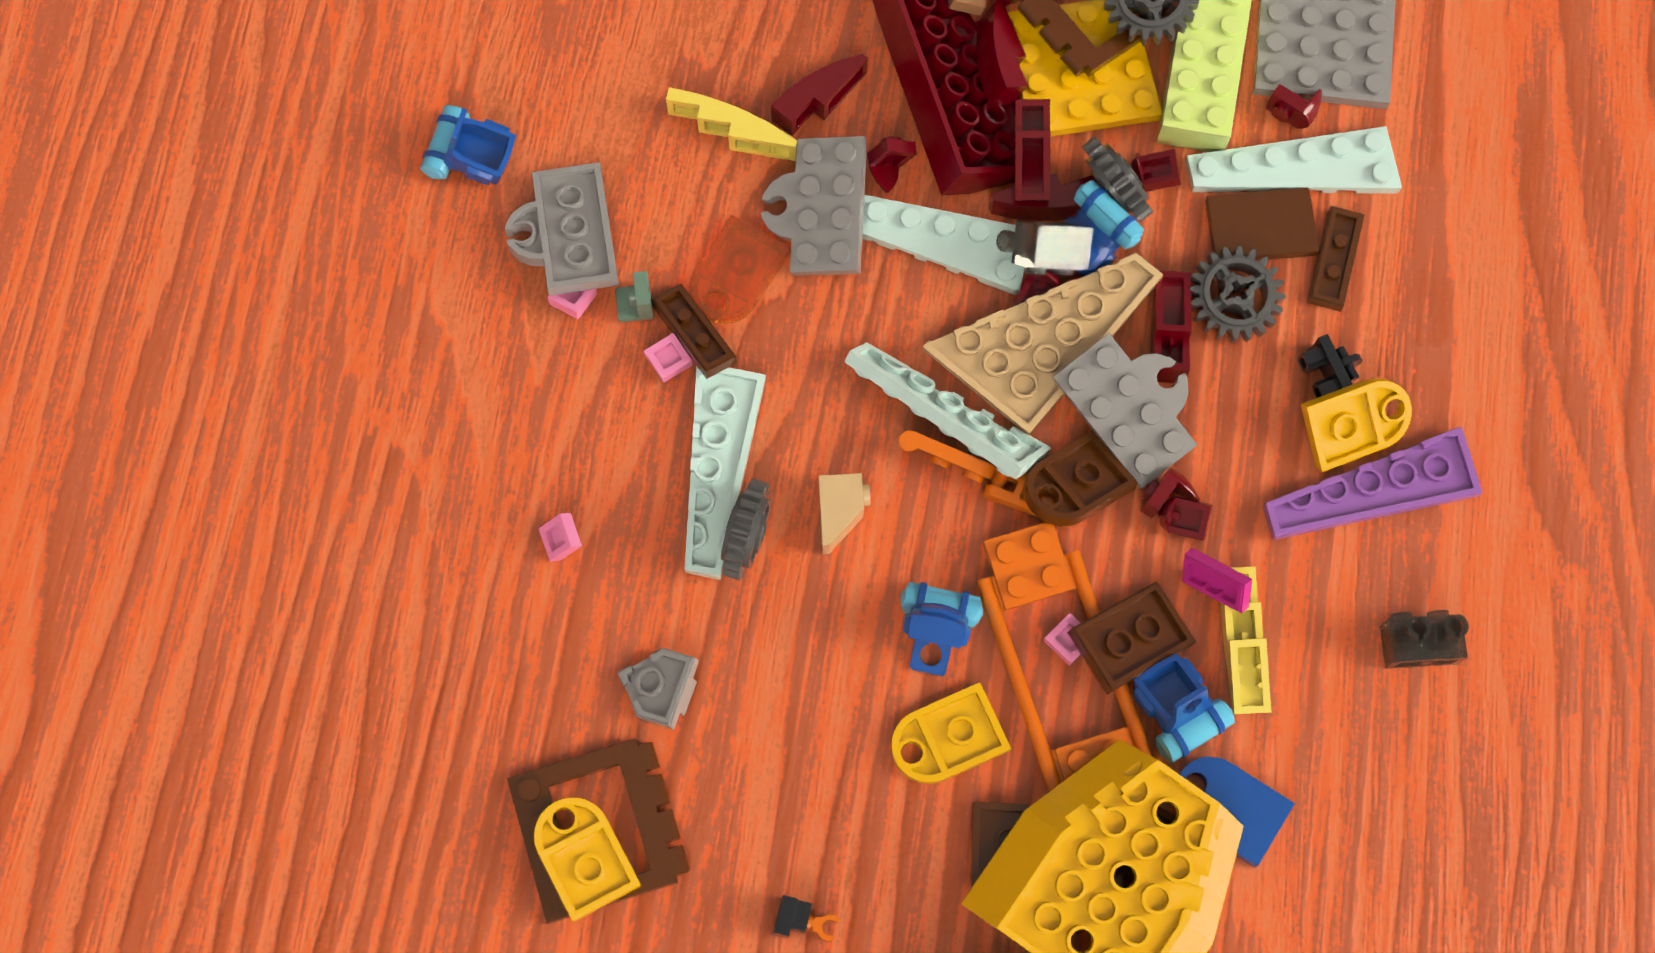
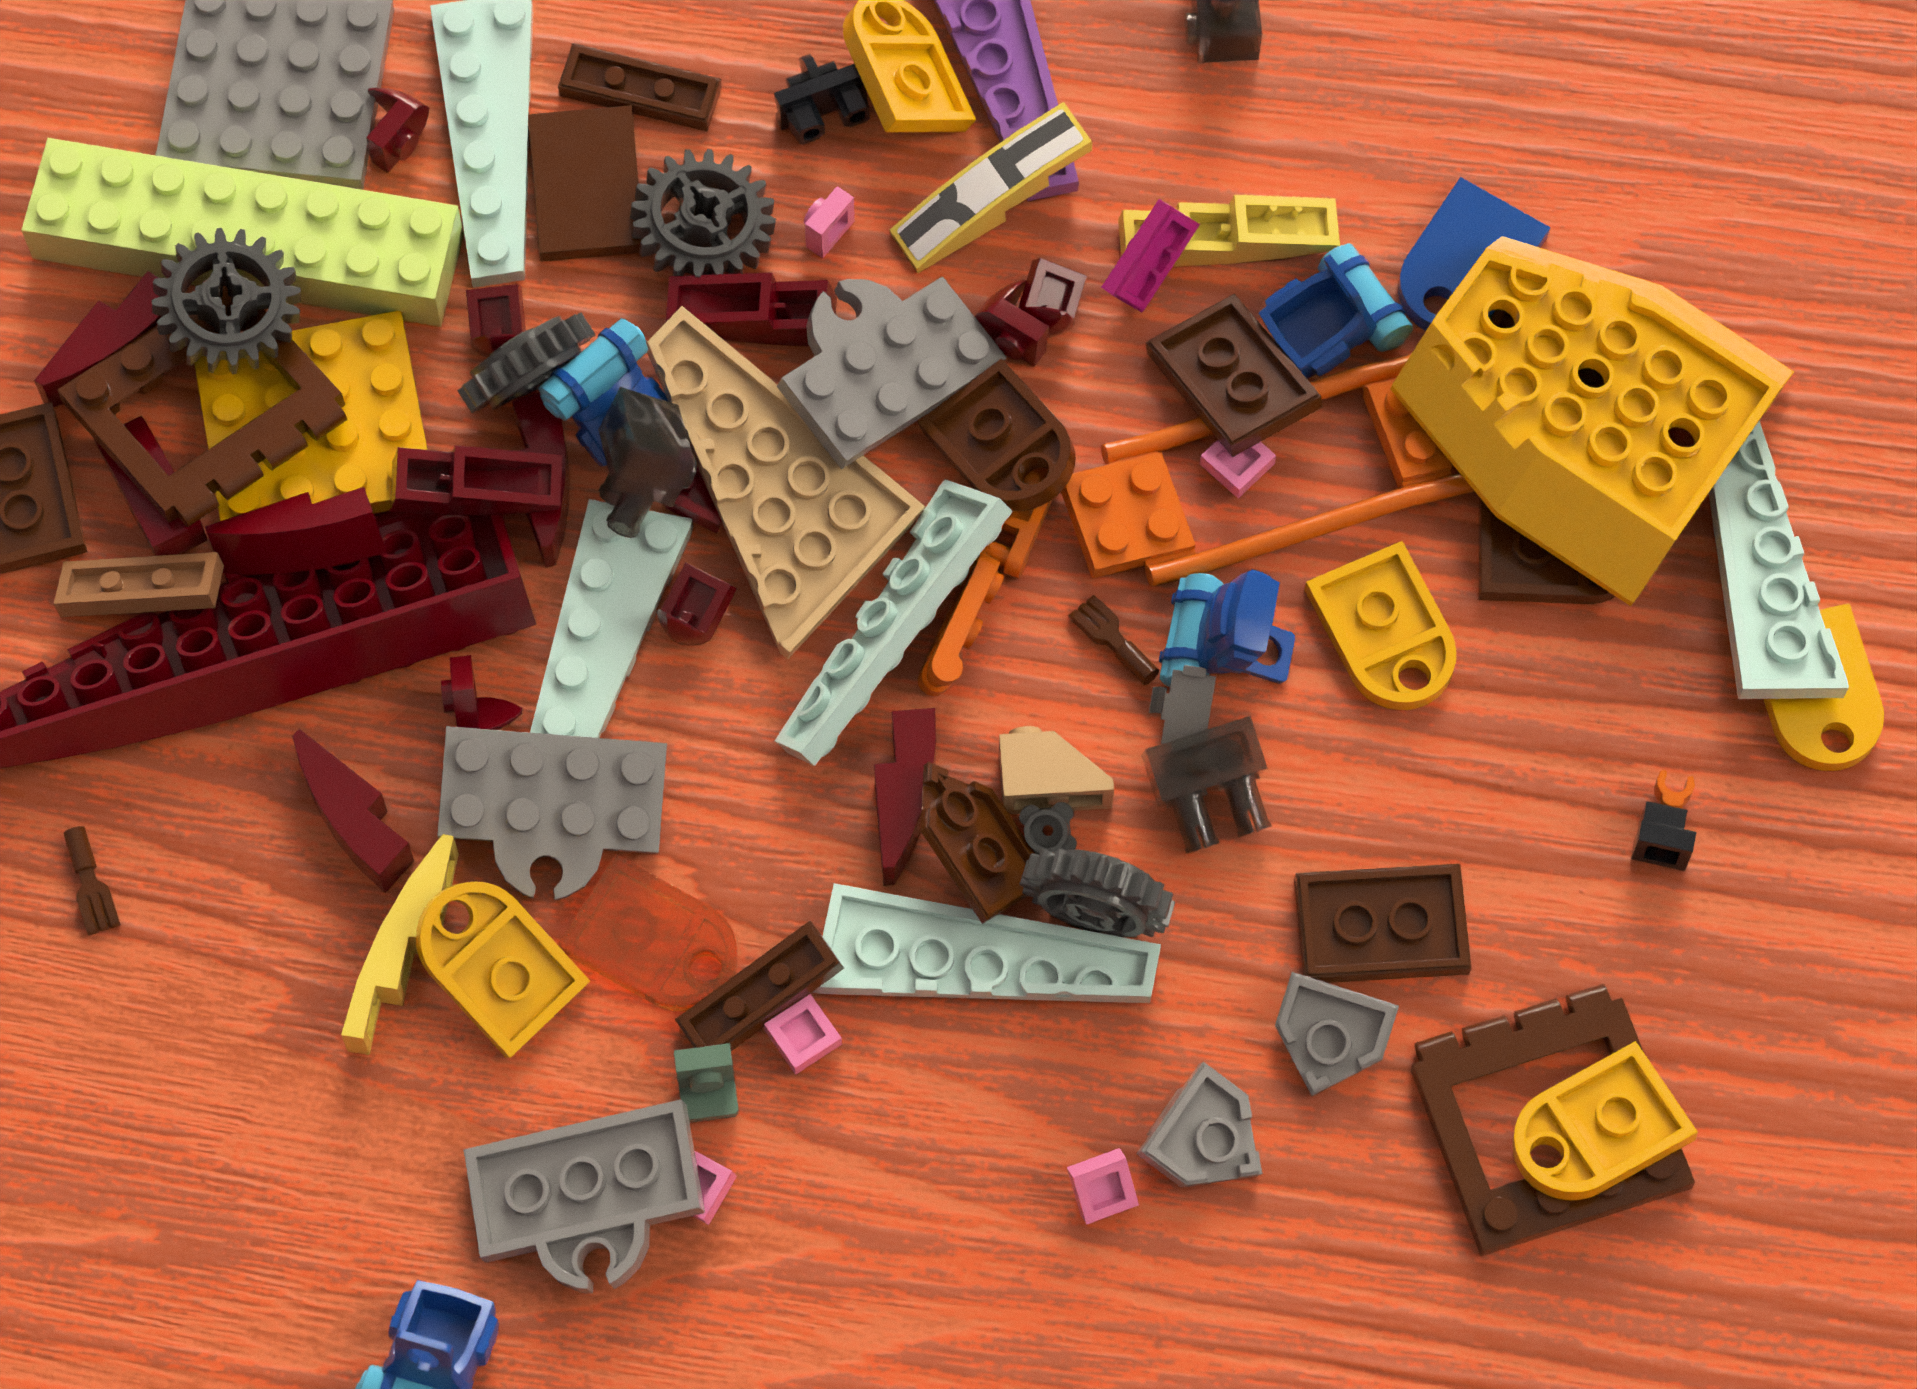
camera: 90 degrees left, 5 degrees down
(592, 601) = (1204, 1133): none -> light grey plate
(713, 177) = (499, 966): none -> yellow tile
(736, 725) = (1382, 923): none -> reddish brown tile
(788, 457) = (974, 841): none -> reddish brown tile
(796, 503) = (1057, 817): none -> dark grey plate
(828, 420) = (900, 788): none -> dark red slope
(843, 606) = (1211, 759): none -> clear smoke brick
(885, 599) = (1187, 704): none -> light grey piece
(947, 550) = (1103, 628): none -> reddish brown piece
(957, 290) = (694, 606): none -> dark red plate
(1237, 374) = (828, 221): none -> bright pink plate
(1267, 477) = (989, 187): none -> slope

